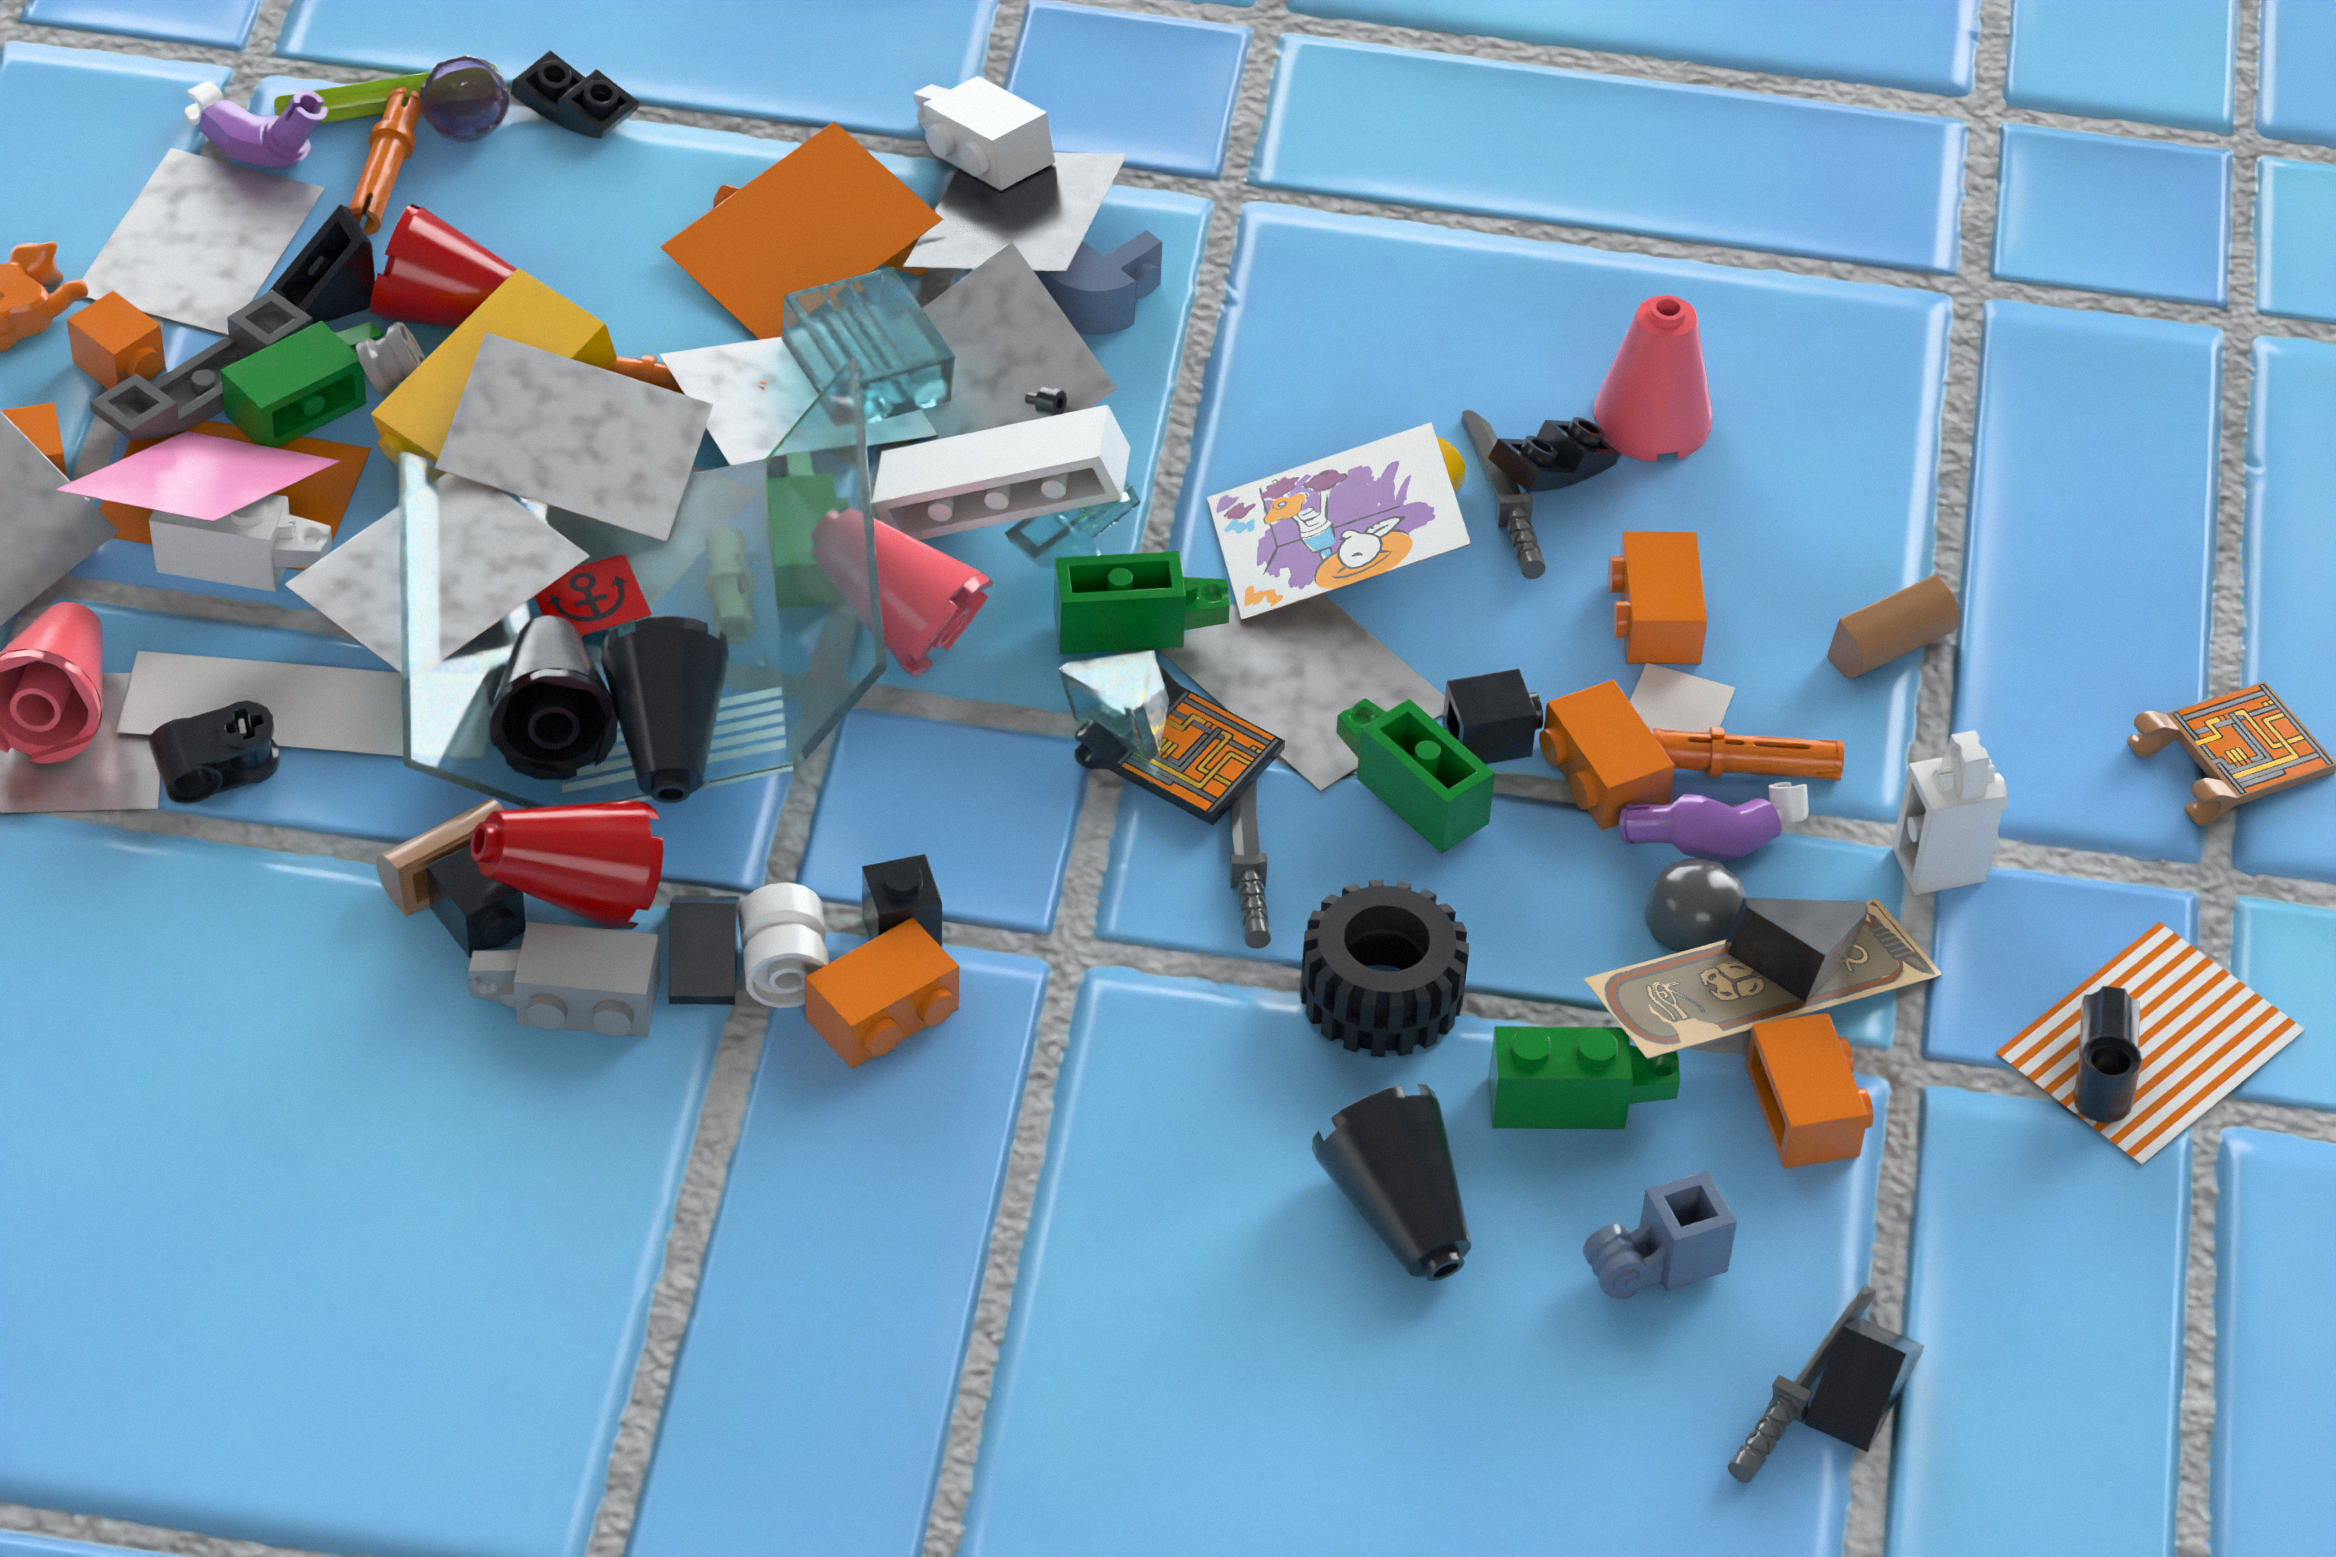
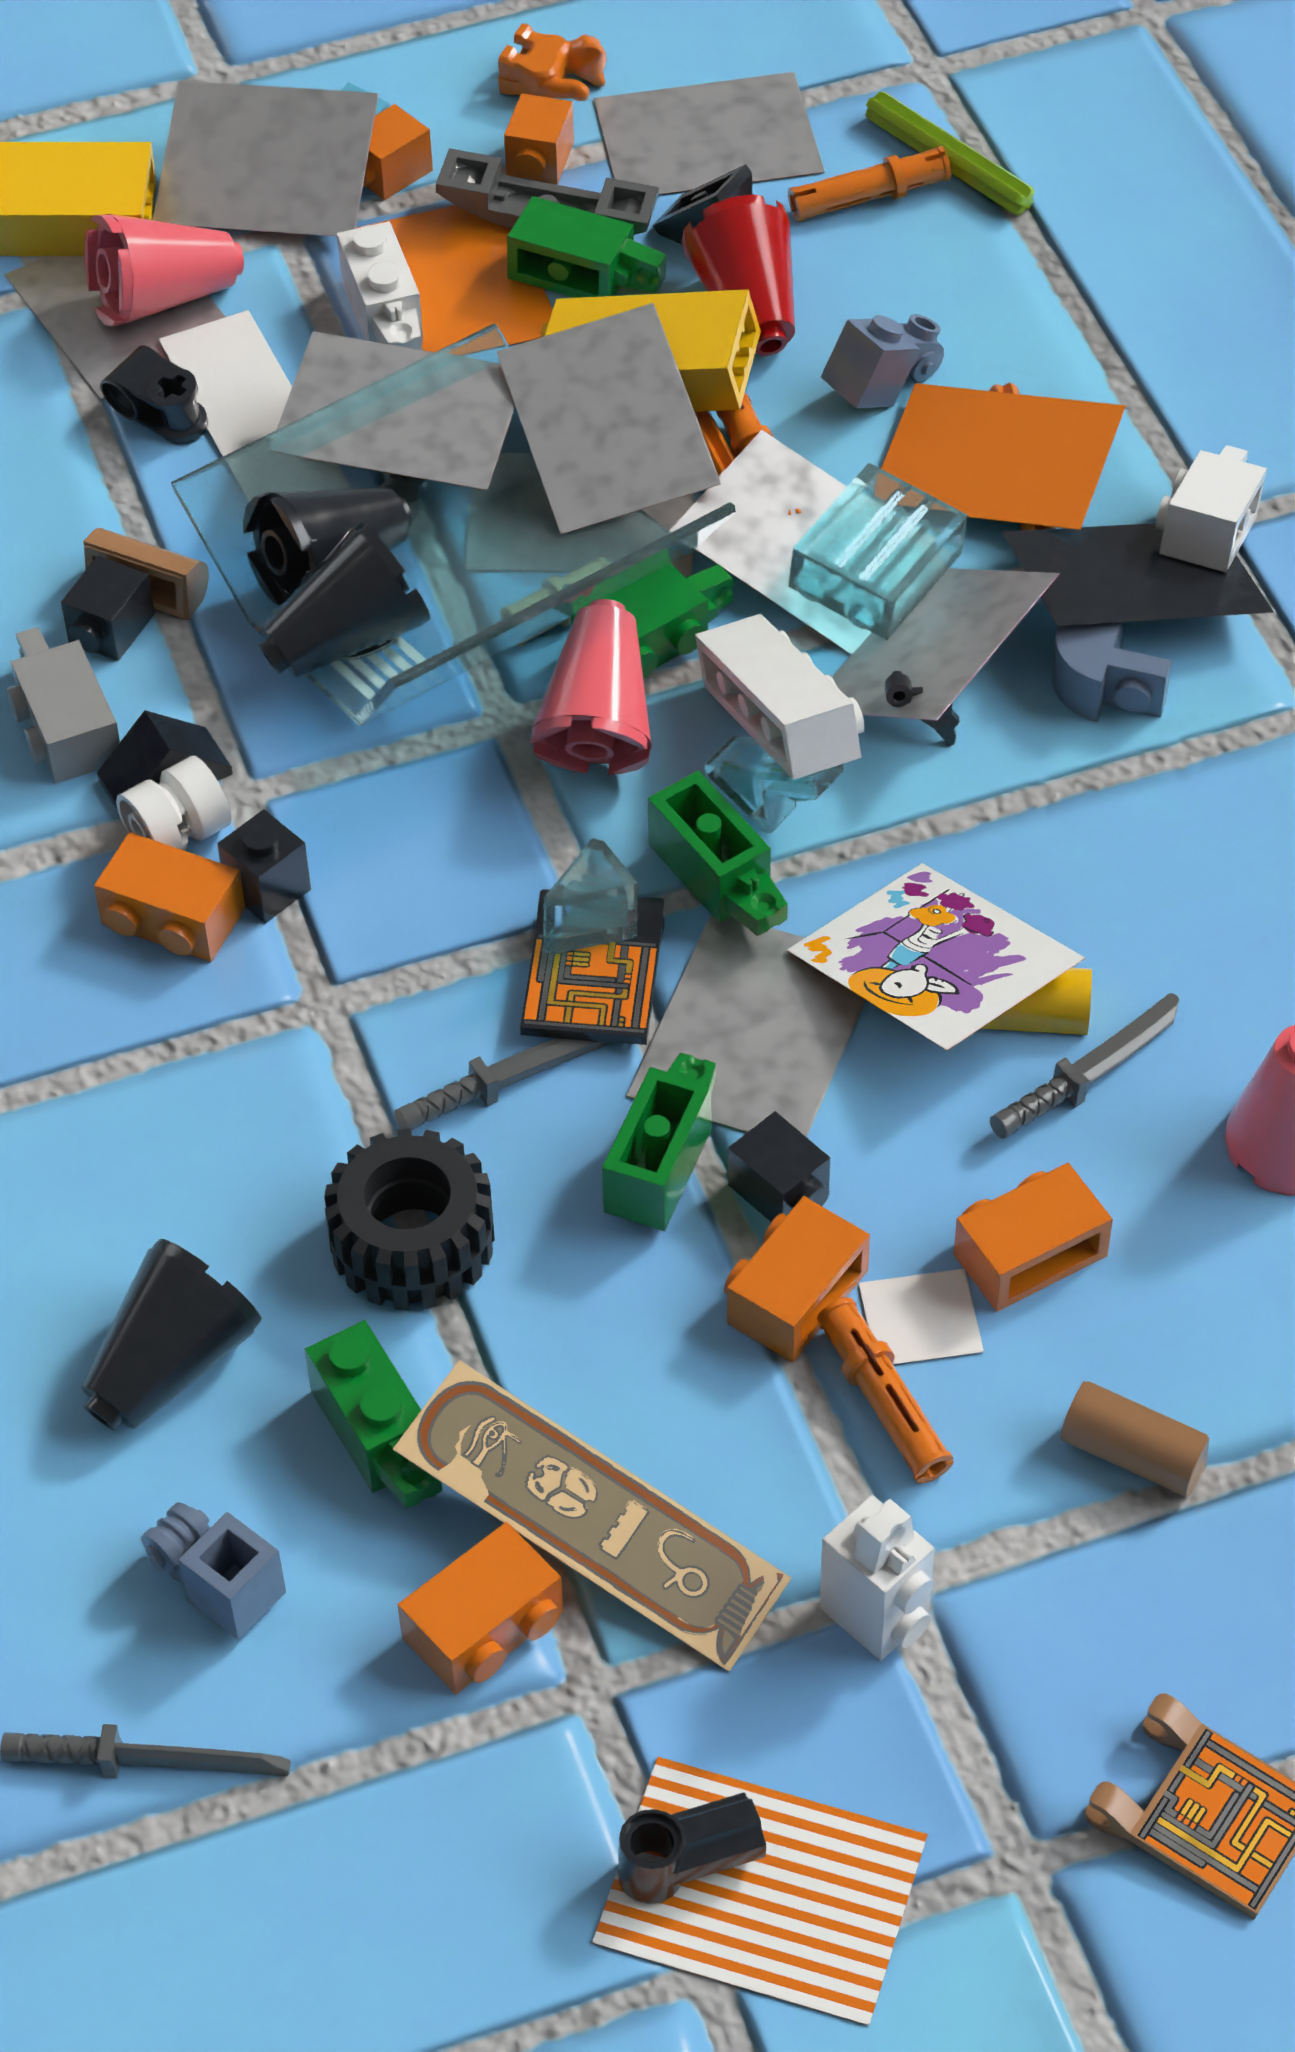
camera: 65 degrees right, 5 degrees up
(220, 472) = (420, 239): bright pink sticker -> none
(252, 138) = (833, 101): medium lavender arm -> none
(390, 358) = (633, 273): light grey wheel -> none
(465, 99) = (964, 188): hair -> none
(569, 99) = (1045, 252): black slope -> none
(576, 857) = (147, 627): red cone -> none
(596, 596) = (471, 522): red sticker -> none
(630, 246) = (878, 355): none -> sand blue brick
(1556, 457) = (1170, 1089): black slope -> none
(1693, 904) = (667, 1430): dark grey hair -> none
(1712, 829) = (757, 1403): medium lavender arm -> none
(1795, 940) = (634, 1520): black slope -> none
(1862, 1382) = (171, 1799): black slope -> none

